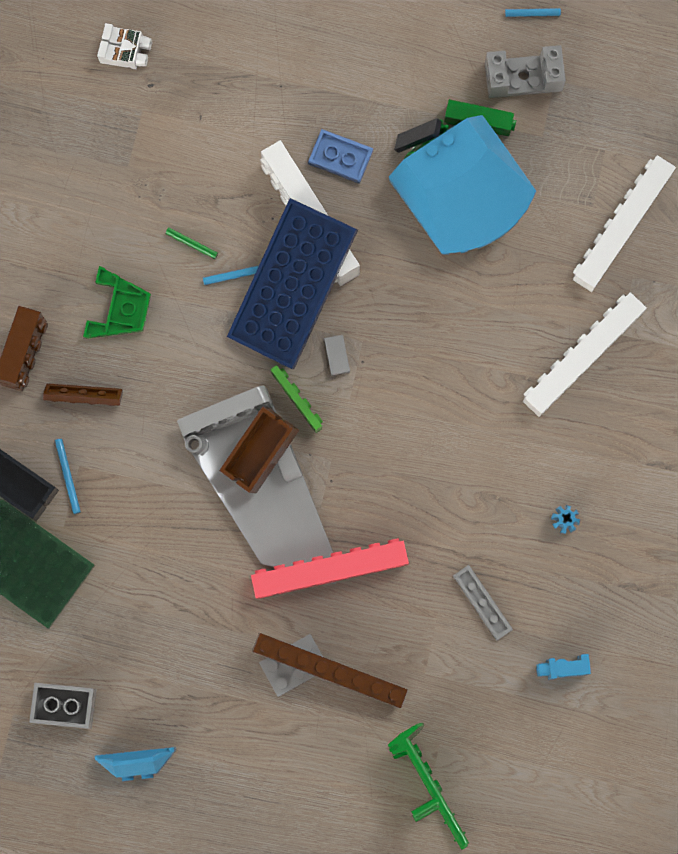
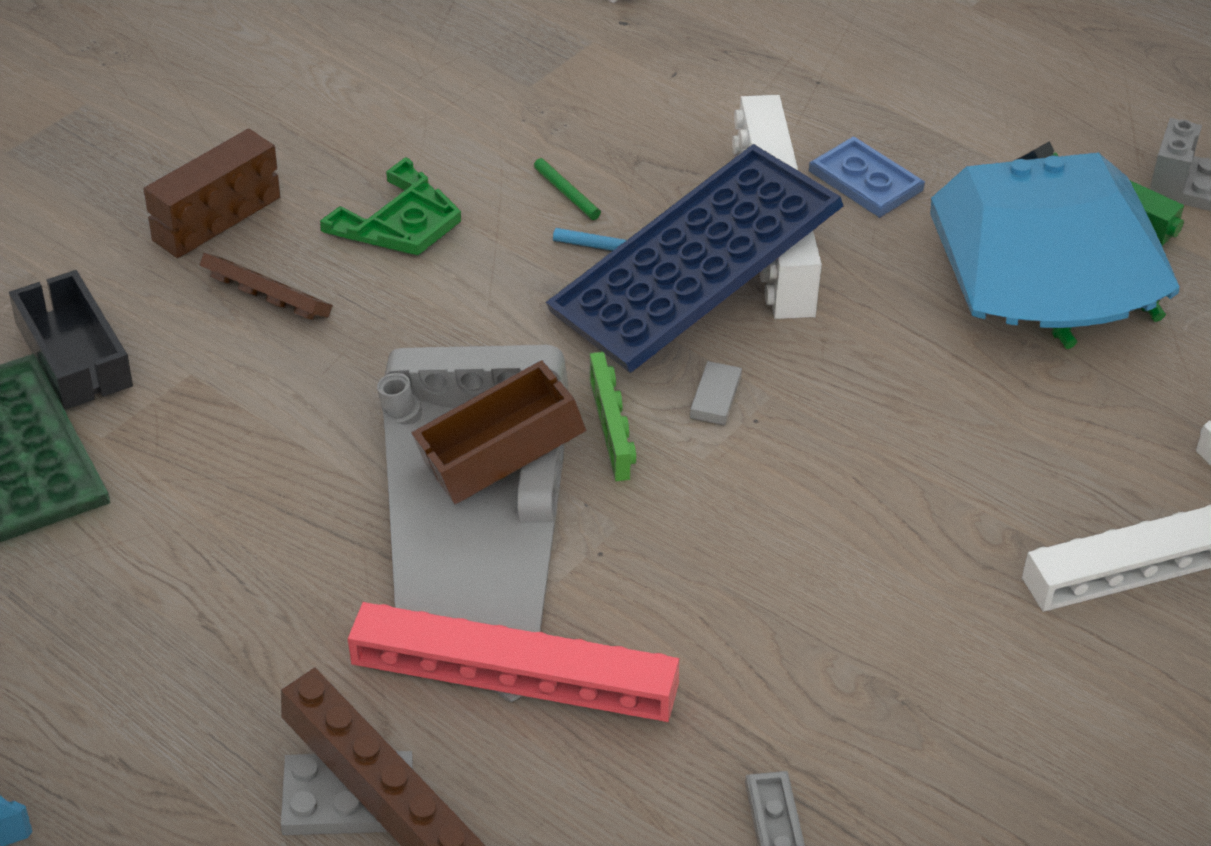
camera: 25 degrees right, 35 degrees down
(67, 476) = (160, 377): dark azure piece -> none
(559, 519) = (1022, 771): dark azure piece -> none

